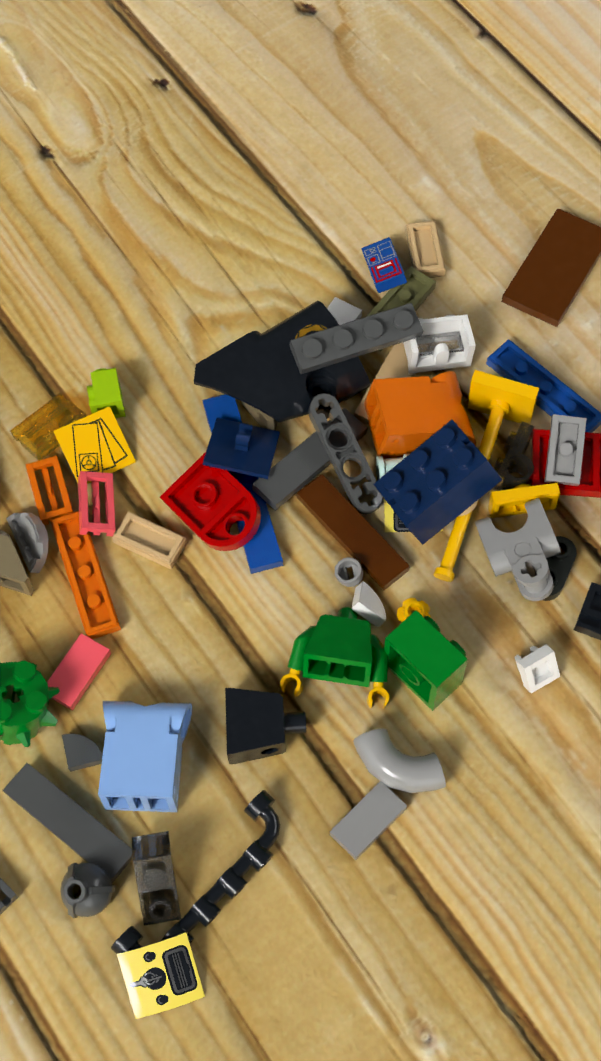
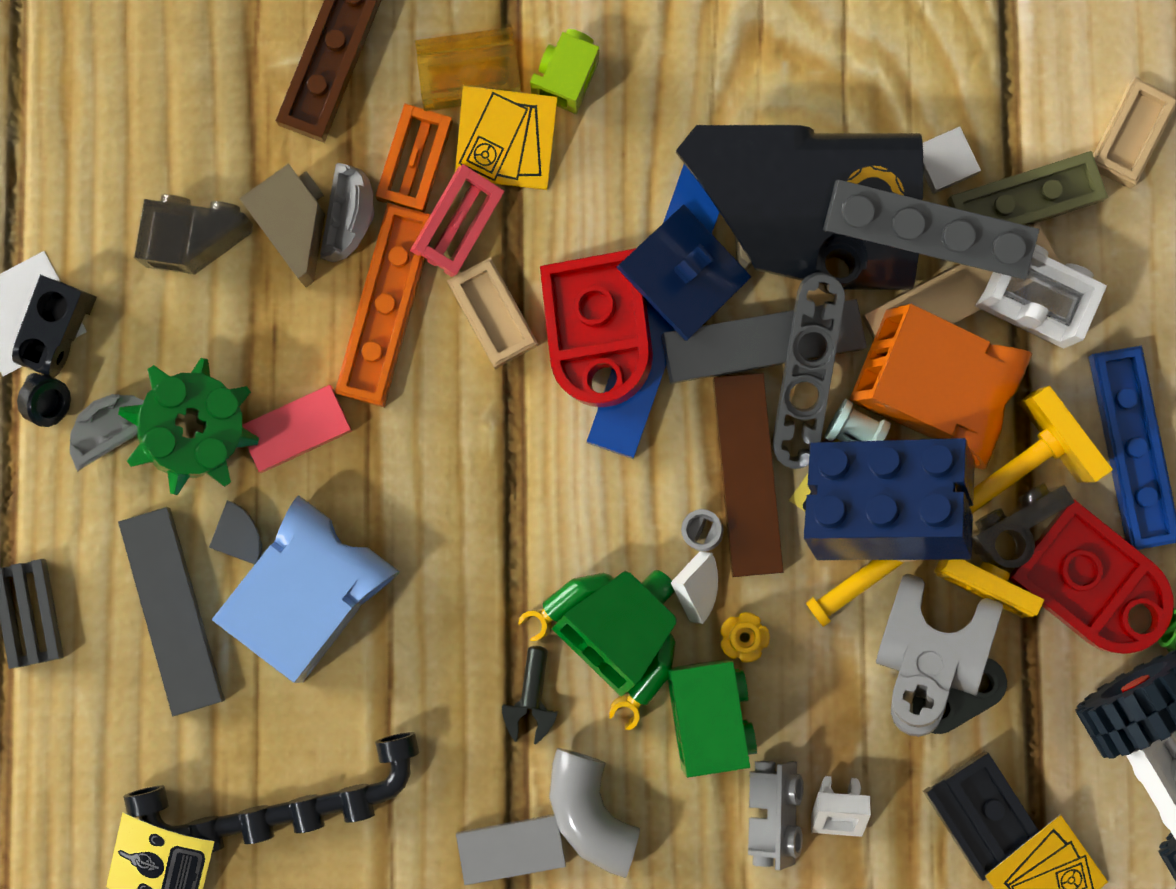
camera: 30 degrees right, 20 degrees up
(95, 889) = (146, 706): dark grey piece -> none
(156, 878) = (224, 749): clear smoke slope -> none
(258, 724) = (460, 650): black torso -> none
(319, 728) = (531, 697): none -> pearl dark grey bar
(384, 265) = (1057, 124): blue tile -> none
(513, 705) = (777, 834): none -> light grey hinge
(565, 450) = (1086, 566): light grey hinge -> none

